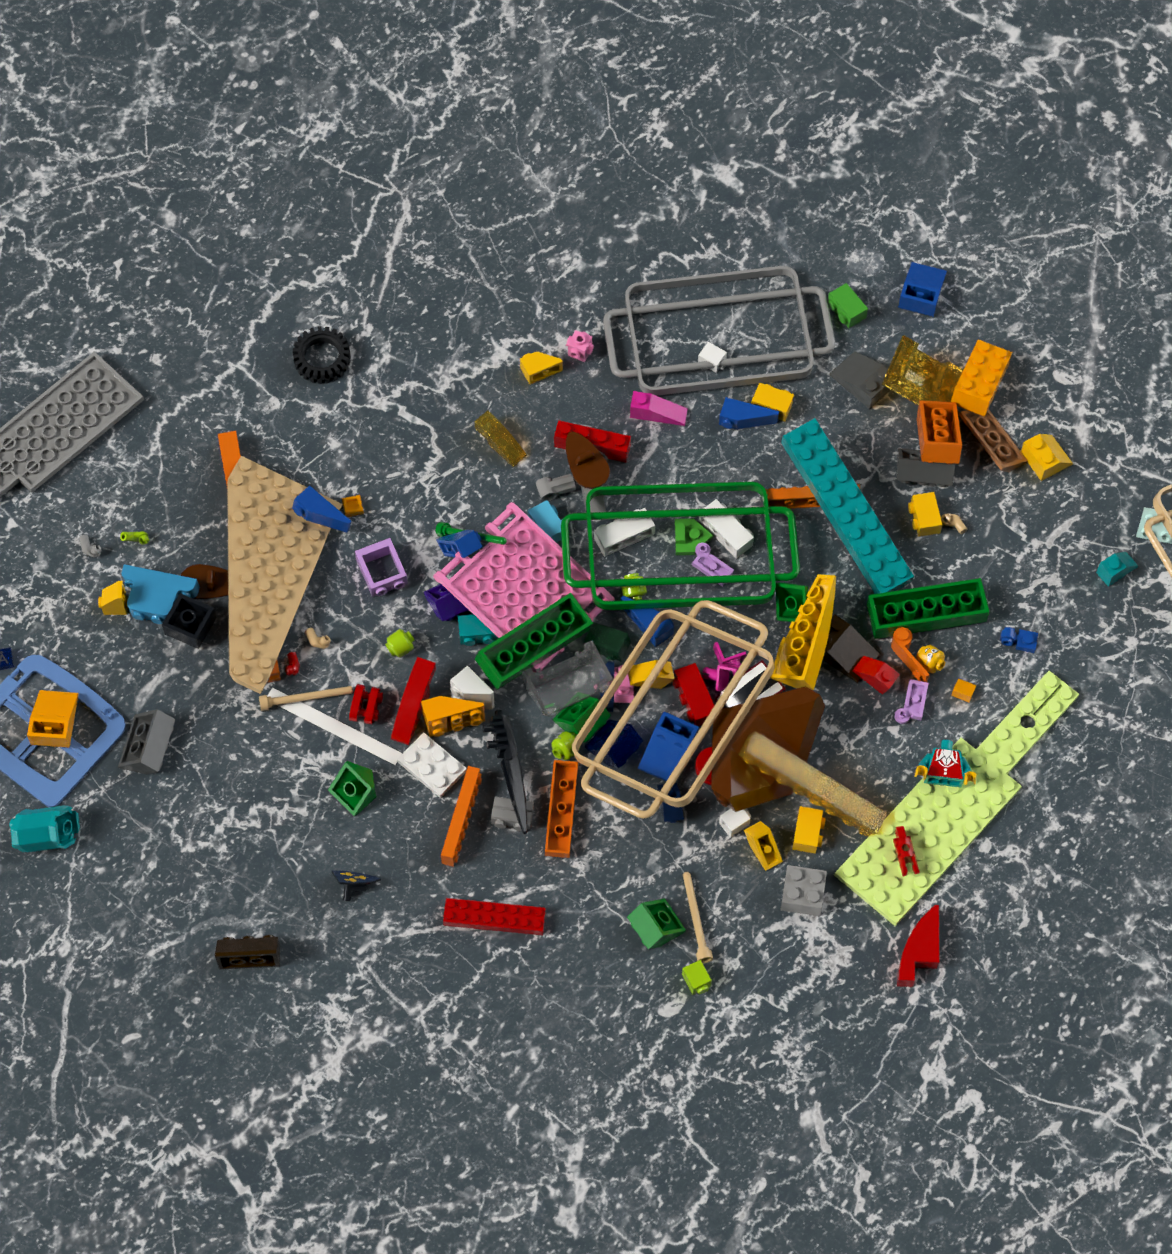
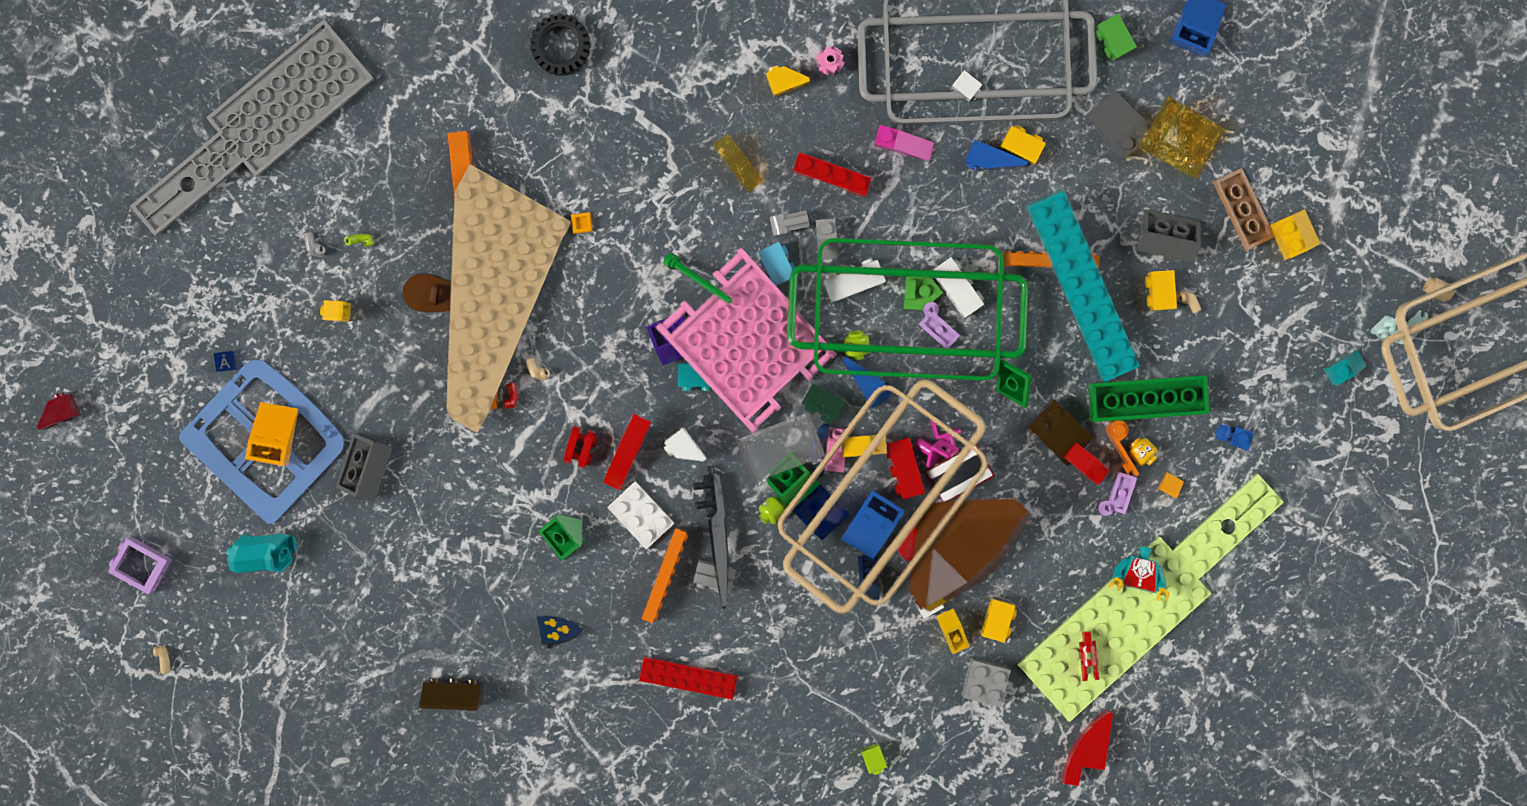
camera: 10 degrees right, 25 degrees up
(155, 592) = (378, 307): dark azure brick -> none
(189, 621) = (410, 342): black brick -> none
(268, 702) = (485, 434): tan piece -> none
(318, 510) = (543, 233): blue slope -> none
(339, 729) = (547, 463): white sticker -> none
(374, 552) = (598, 280): lavender window -> none
(400, 643) = (618, 384): lime head -> none
(450, 714) = (656, 469): light orange slope -> none
(465, 542) = (687, 290): blue slope -> none
(533, 641) = (751, 407): green brick -> none
(561, 809) = (762, 575): orange piece -> none
(586, 462) = (822, 205): reddish brown shield -> none
(655, 923) = (841, 701): green slope -> none
(703, 952) = (883, 733): tan piece -> none
(805, 644) = (1022, 430): yellow wedge -> none
(812, 783) = (1008, 586): clear yellow brick -> none
(939, 432) = (1189, 206): orange brick -> none
(981, 377) = (1243, 141): light orange brick -> none

